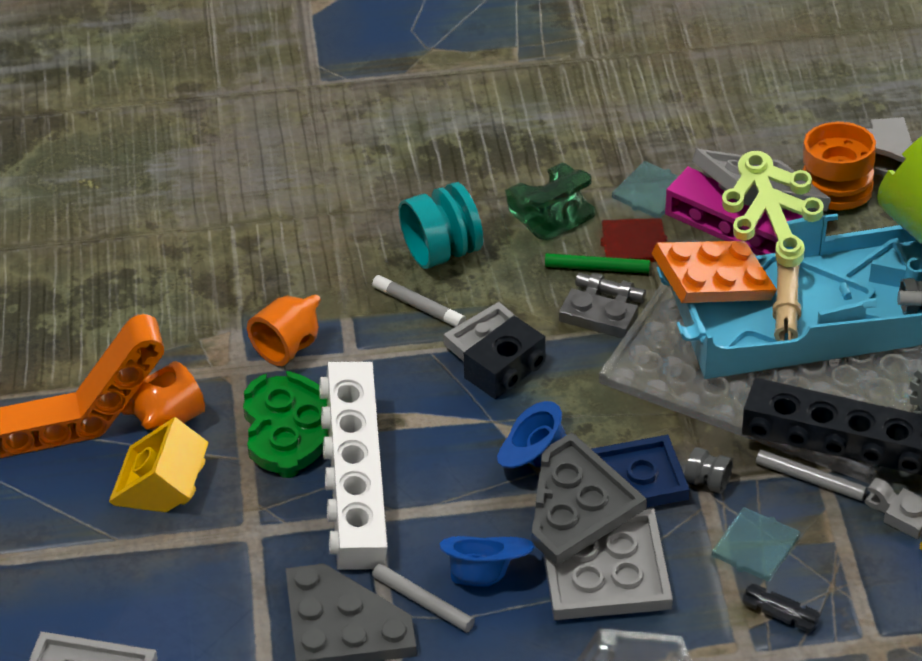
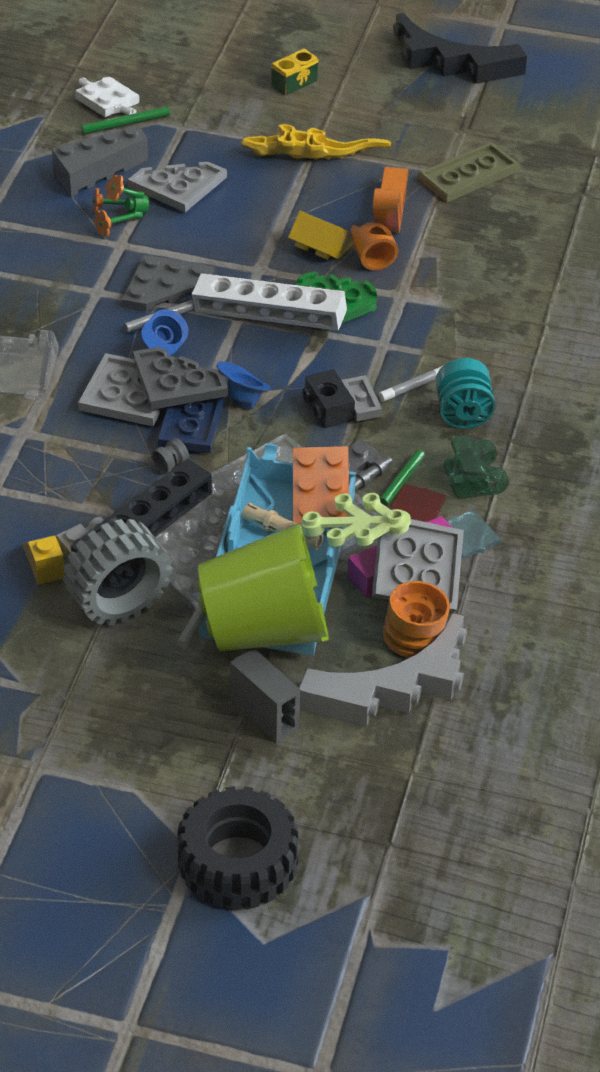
camera: 110 degrees right, 0 degrees up
(284, 328) = (409, 305): orange piece -> none
(756, 544) = (104, 466): clear light blue piece -> none
(781, 607) = (44, 453): black axle -> none

